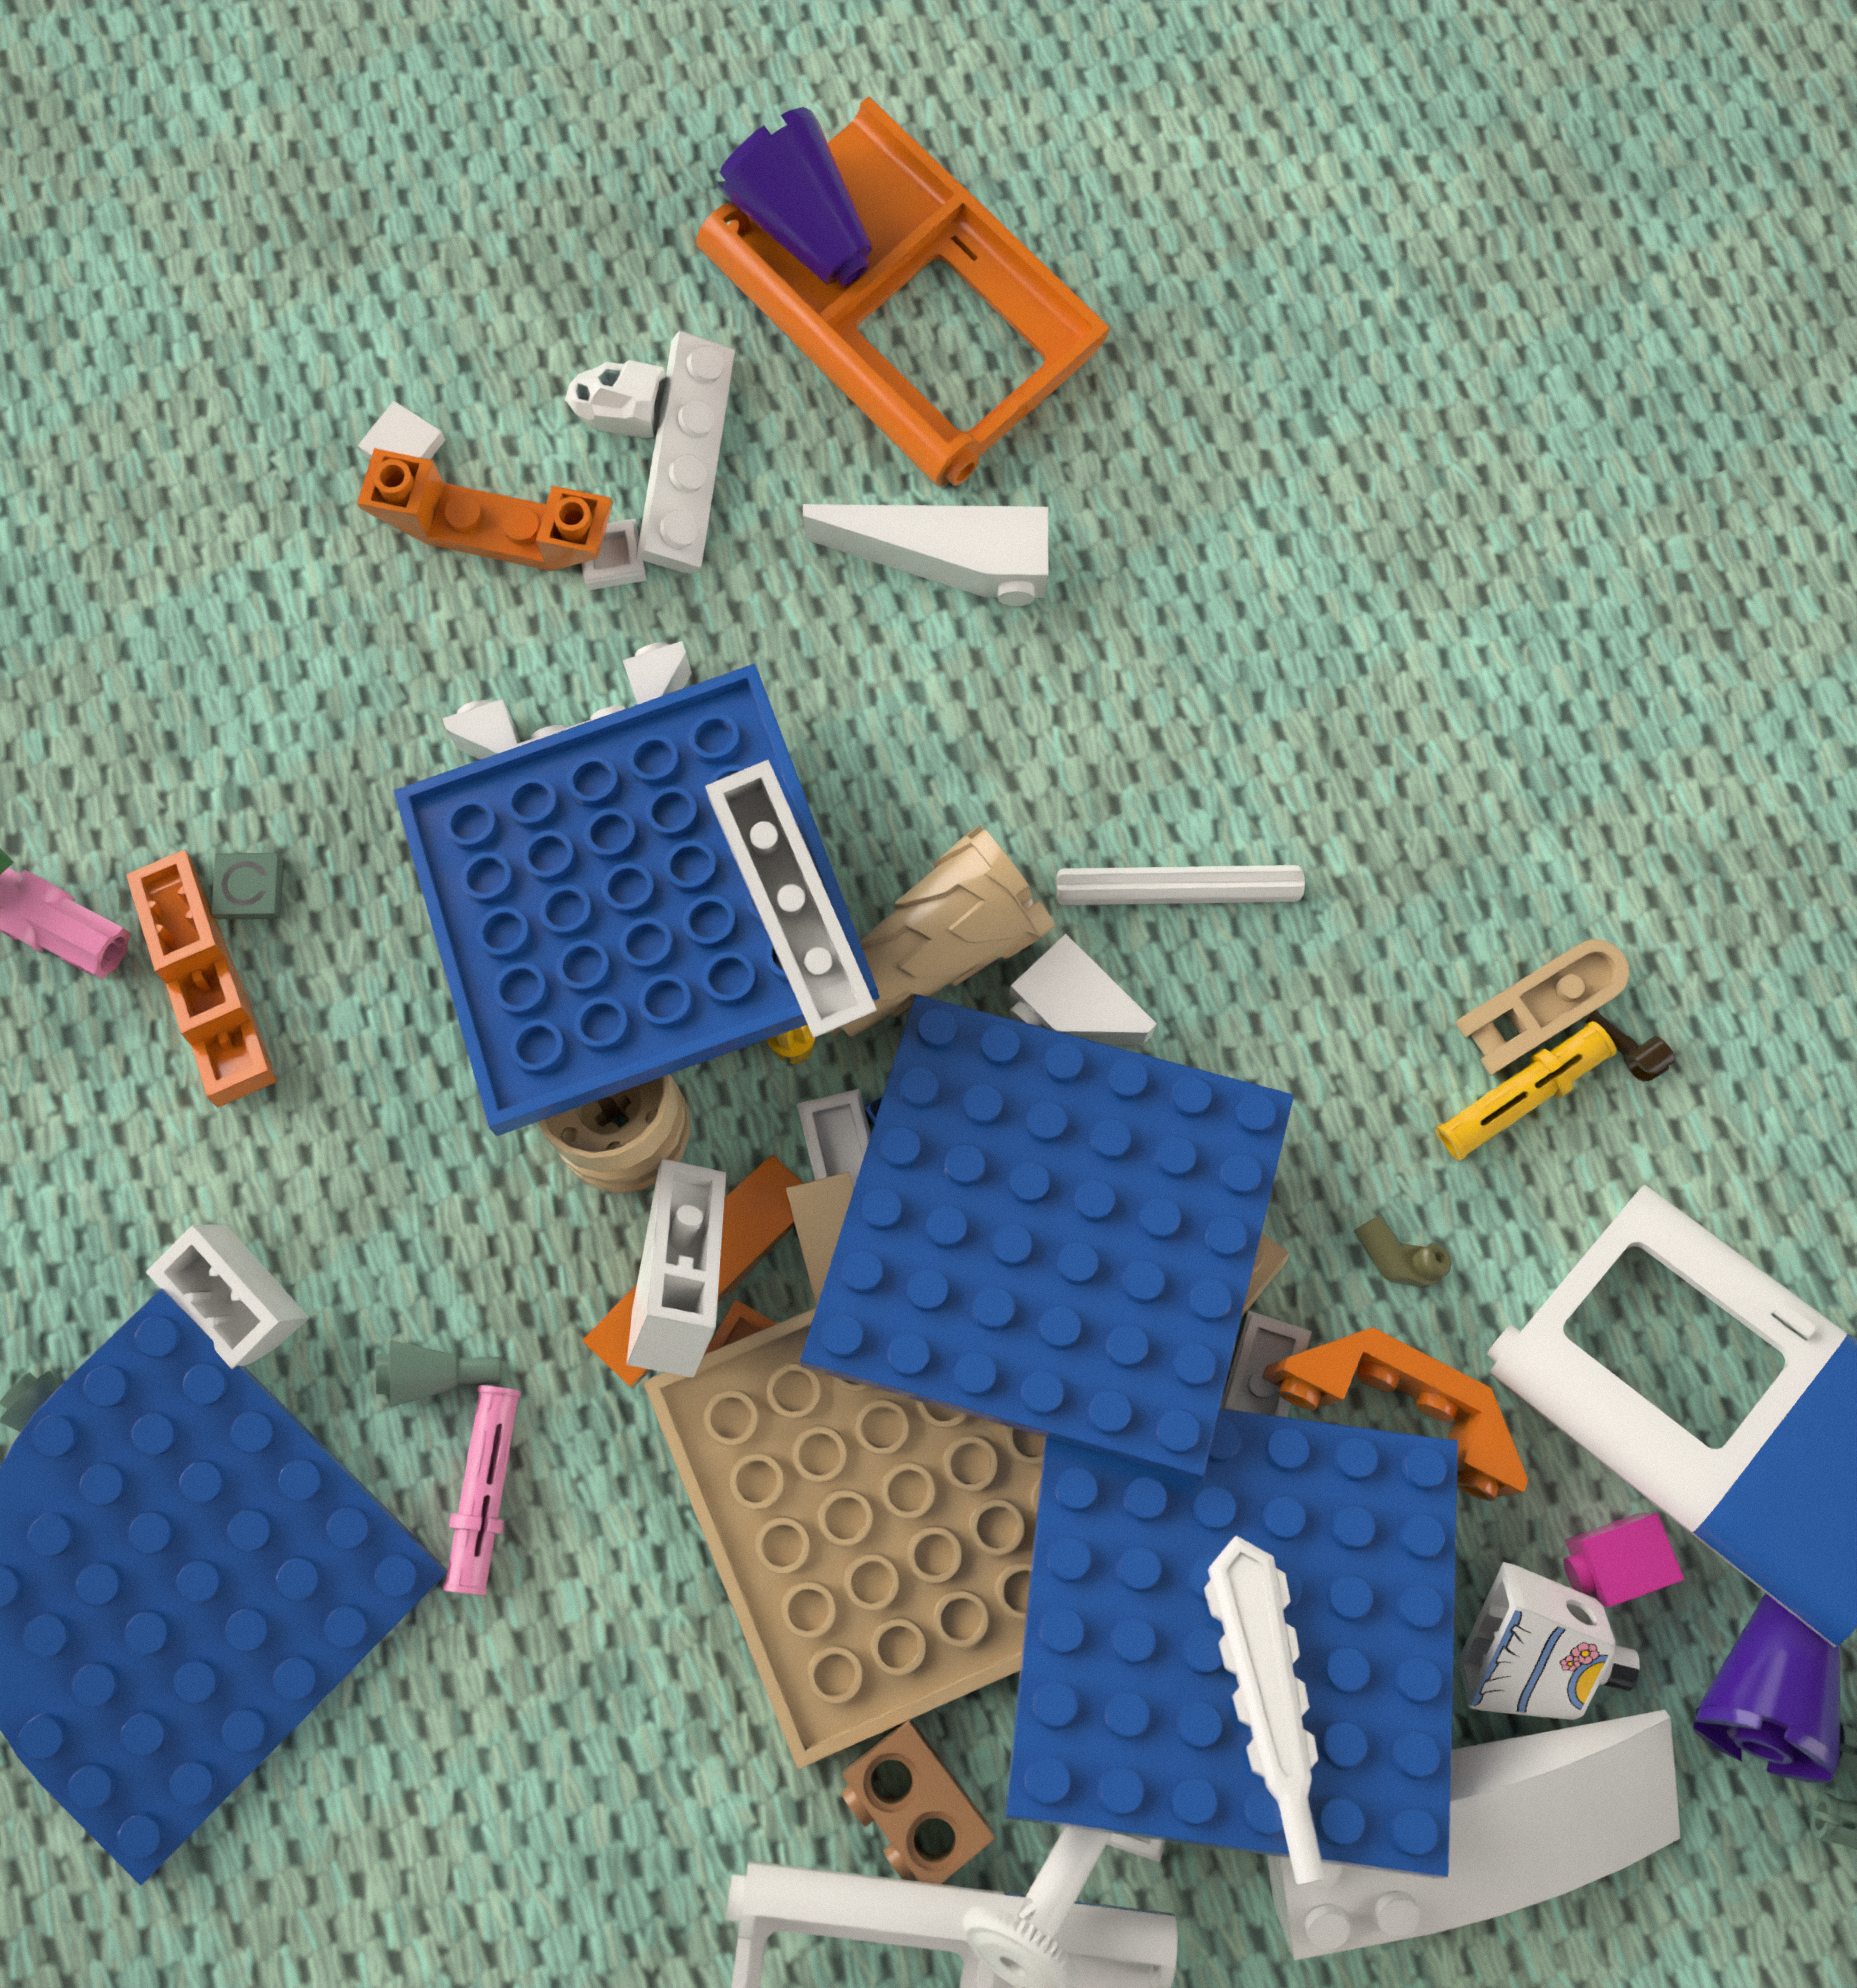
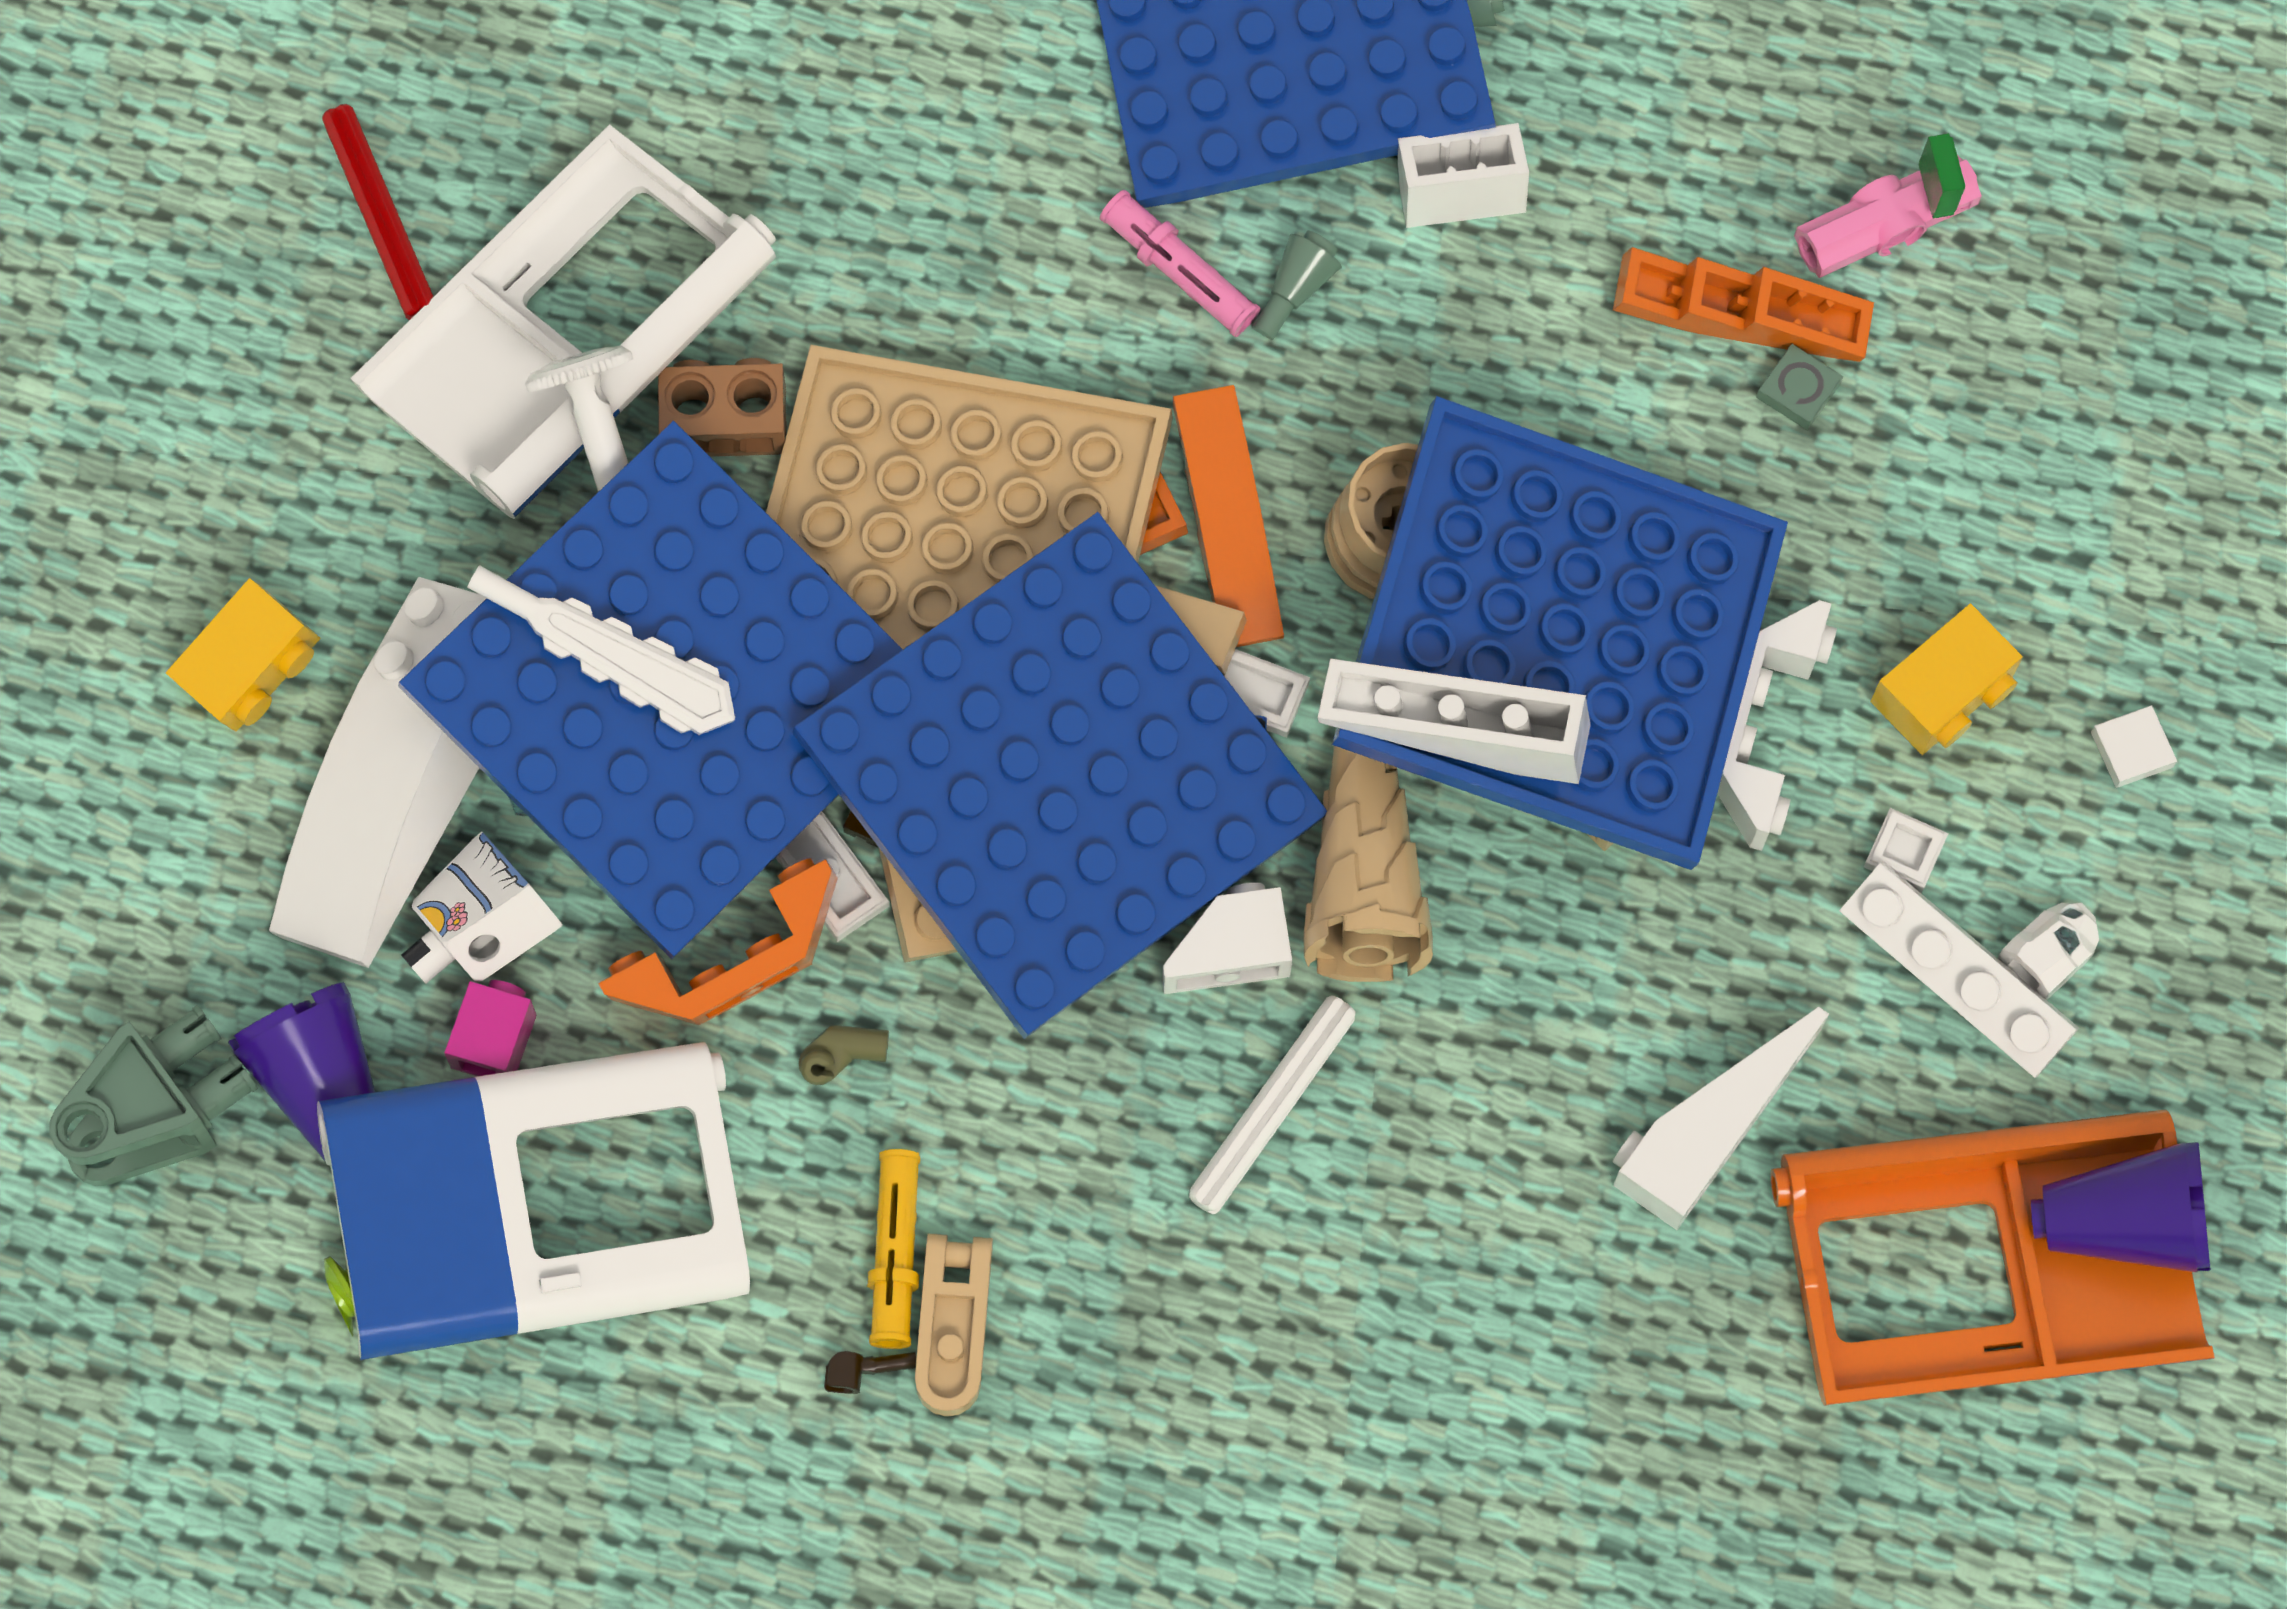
camera: 125 degrees right, 5 degrees down
(445, 597) = (1948, 680): none -> yellow brick
(543, 536) = (2011, 761): orange slope -> none
(679, 1271) = (1238, 482): white slope -> none

